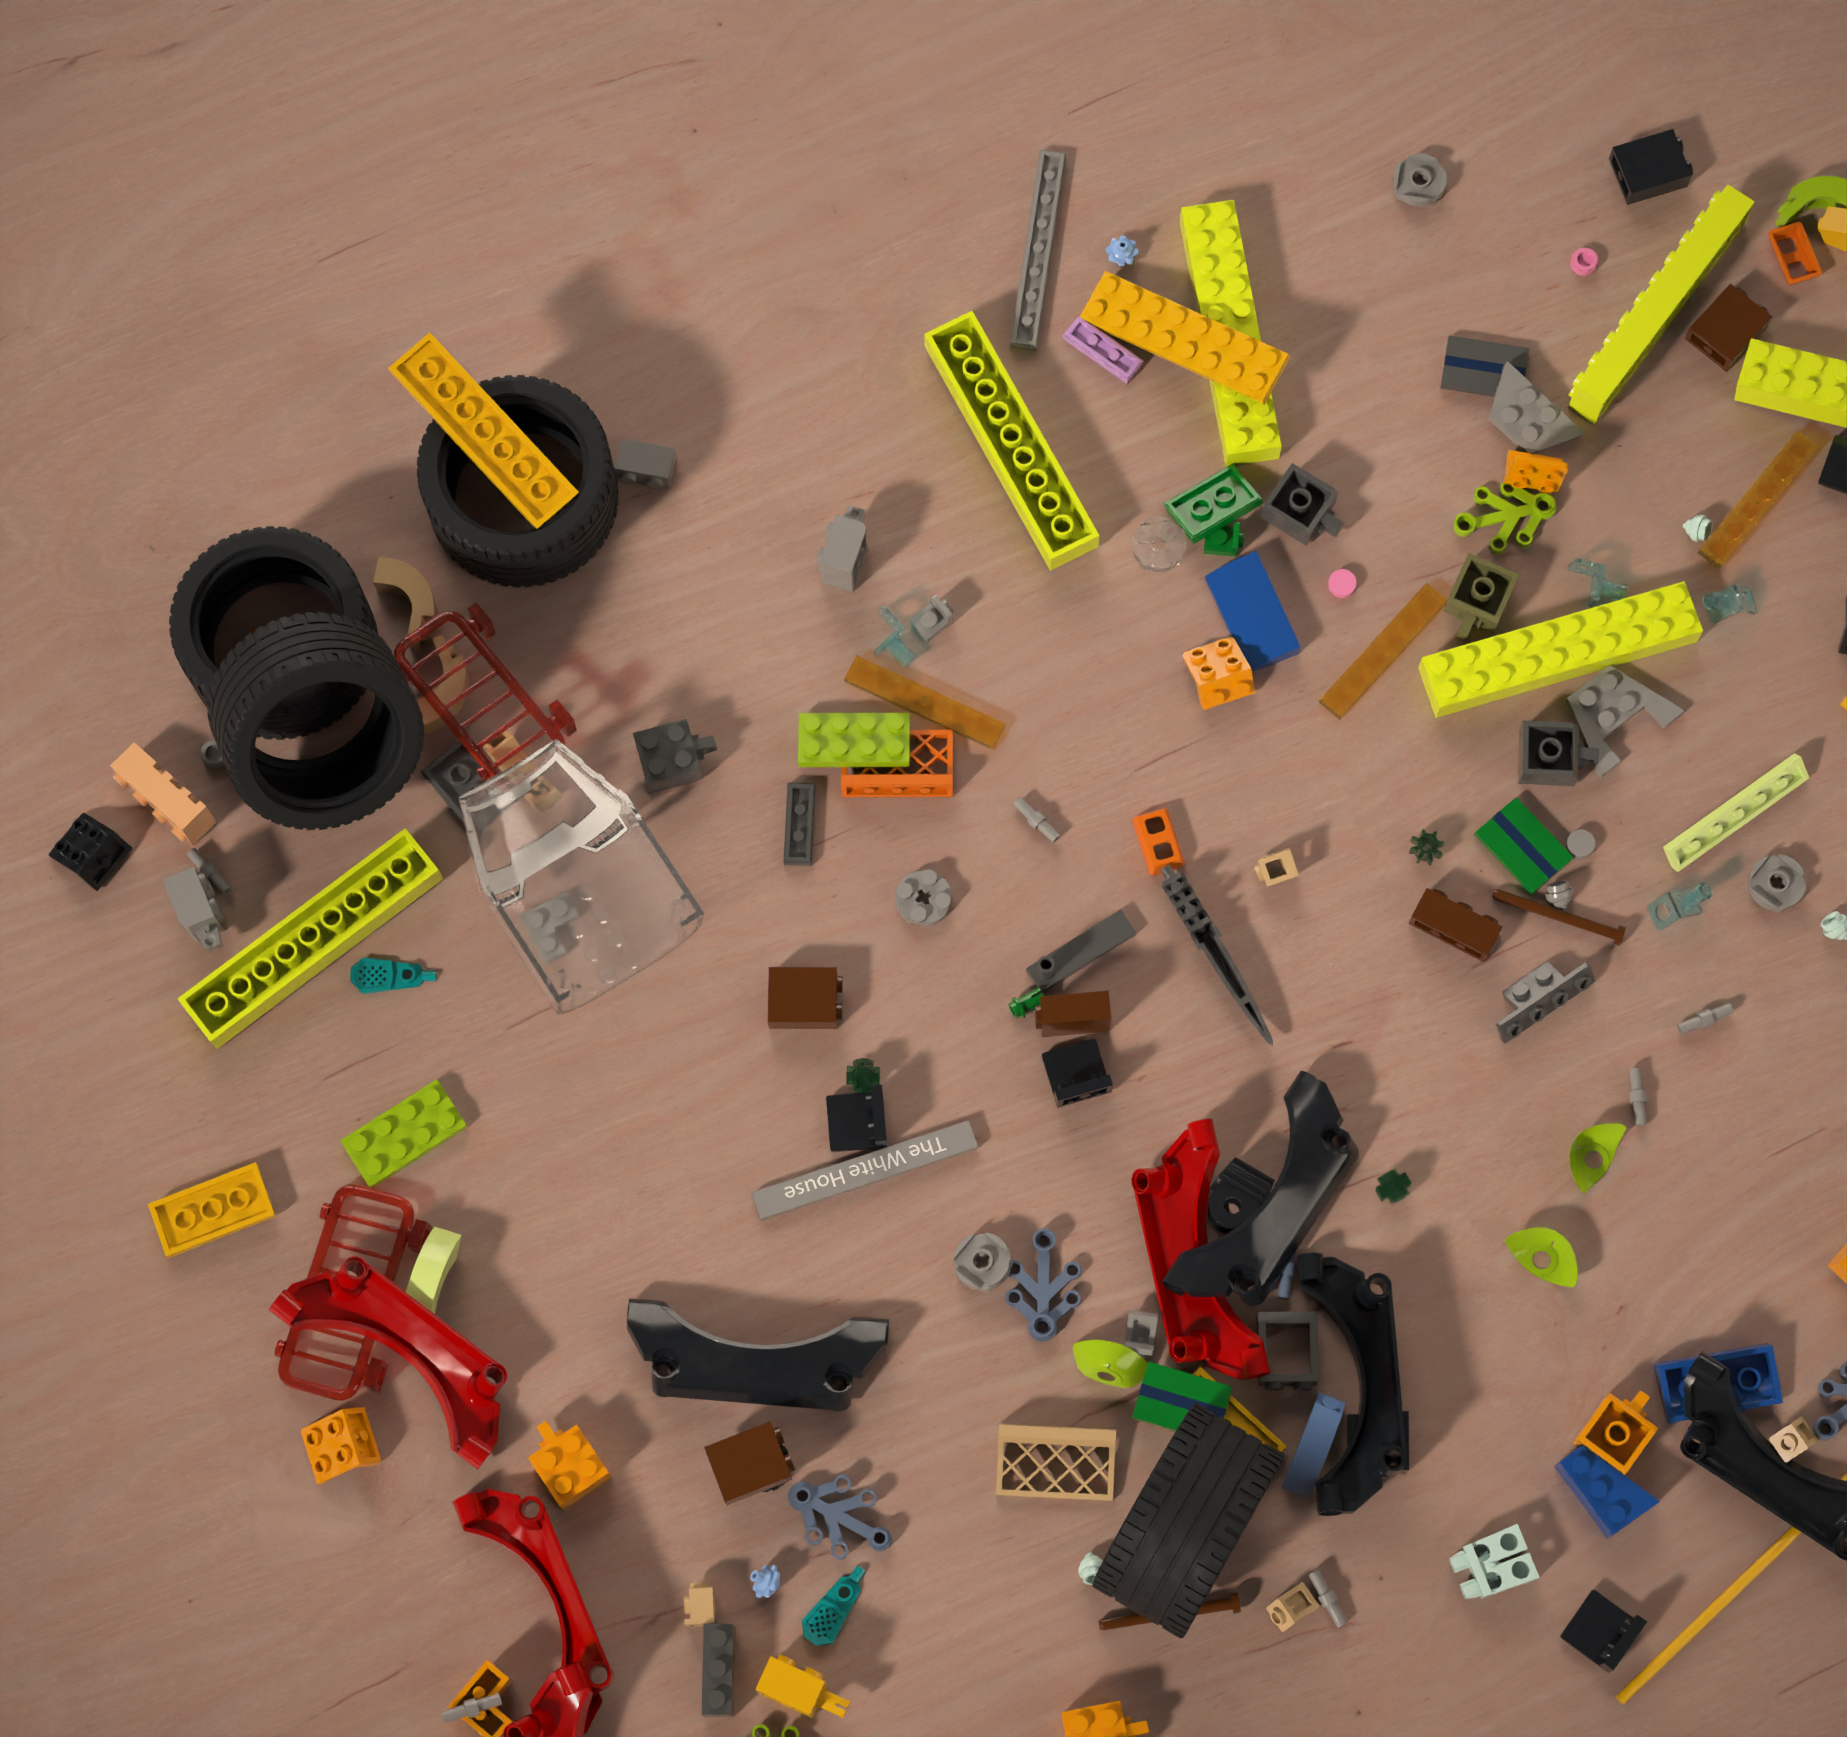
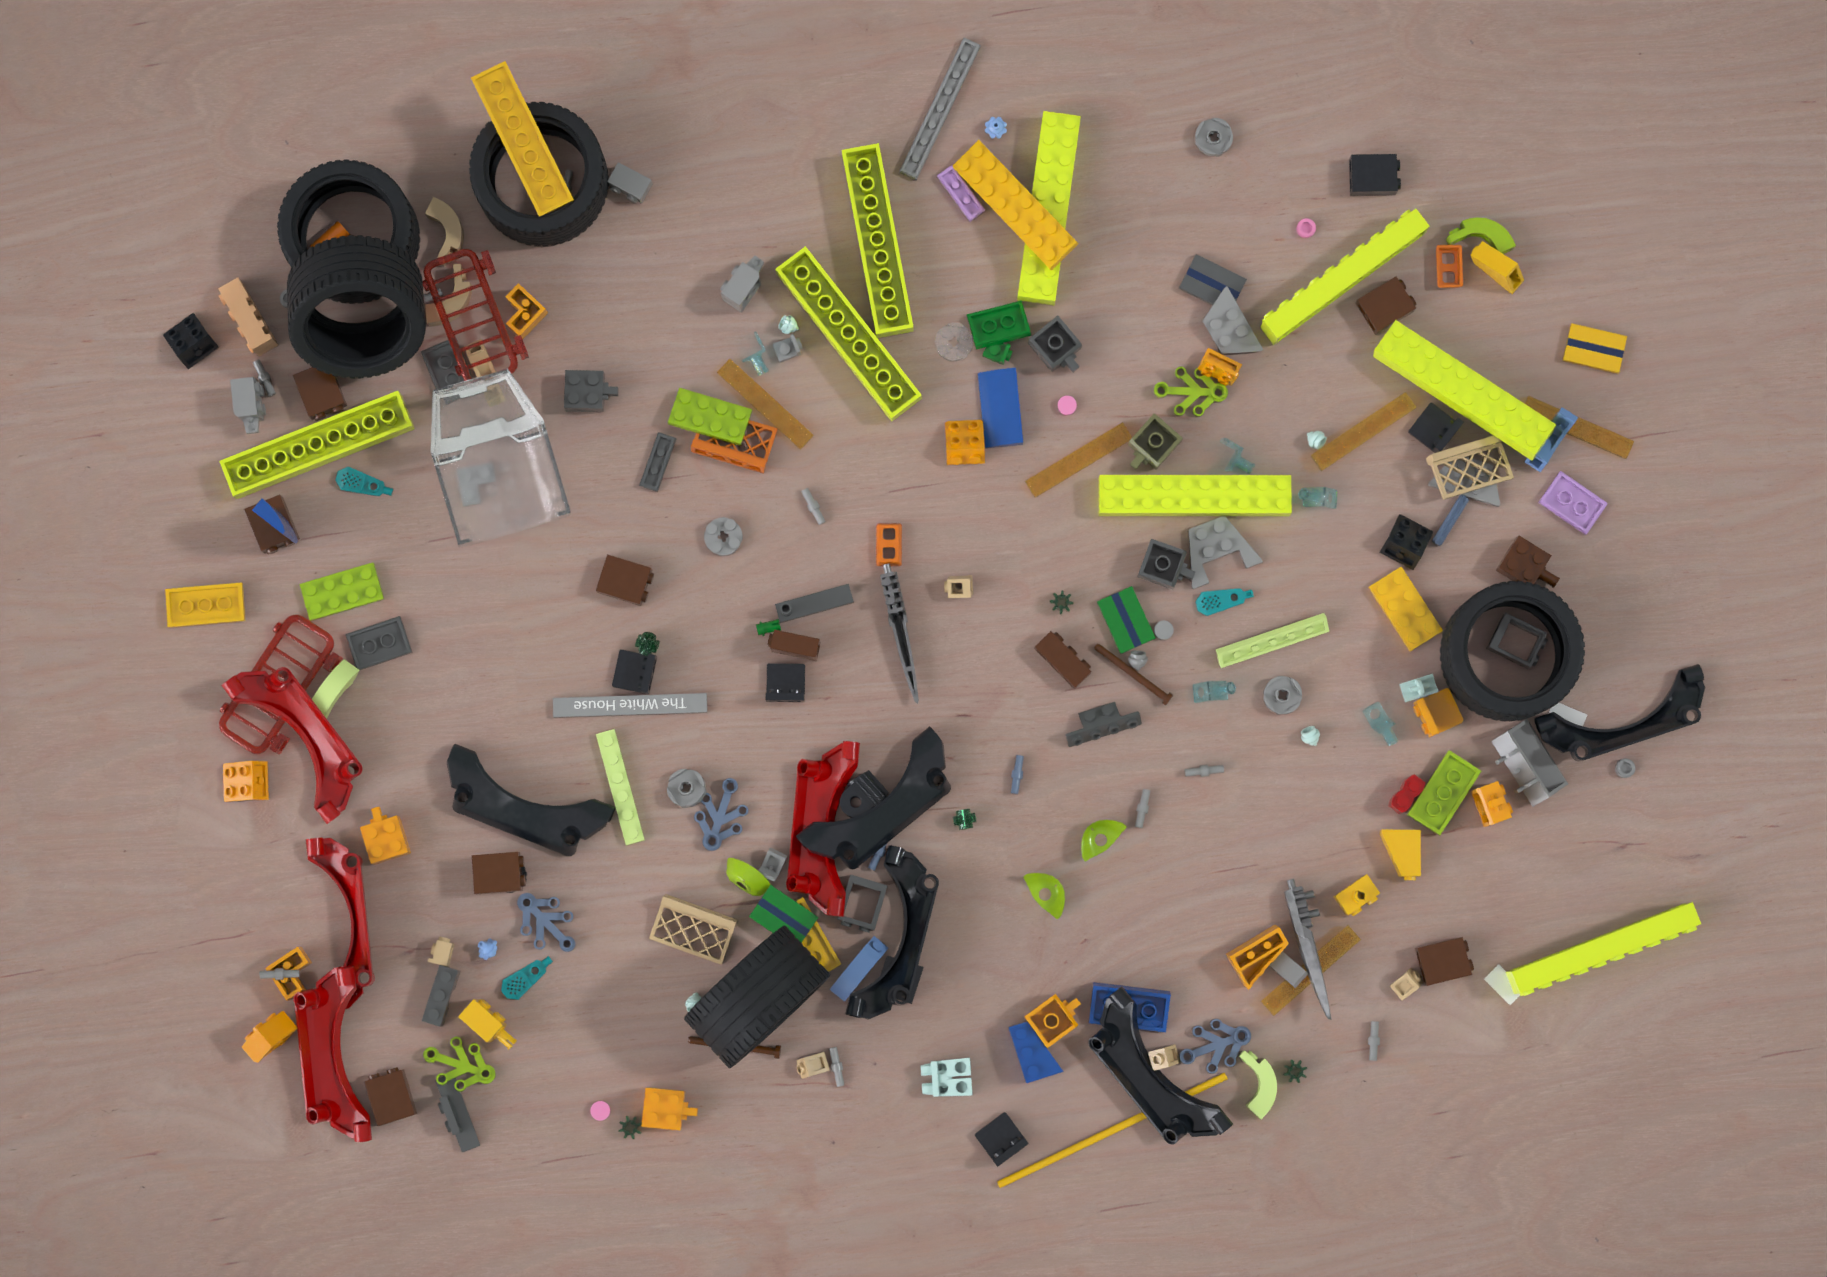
camera: 15 degrees right, 10 degrees up
(277, 1068) = (267, 536): none -> reddish brown brick
(280, 1050) = (275, 519): none -> blue slope
(293, 865) = (319, 393): none -> reddish brown brick
(478, 1190) = (378, 643): none -> dark grey tile
(556, 671) = (529, 311): none -> light orange brick
(887, 1290) = (620, 787): none -> yellowish green plate
(923, 587) = (788, 324): none -> light aqua plate
(1012, 573) = (848, 334): none -> neon yellow brick
(1445, 1102) = (1017, 774): none -> sand blue bar
(1650, 778) = (1224, 599): none -> teal piece

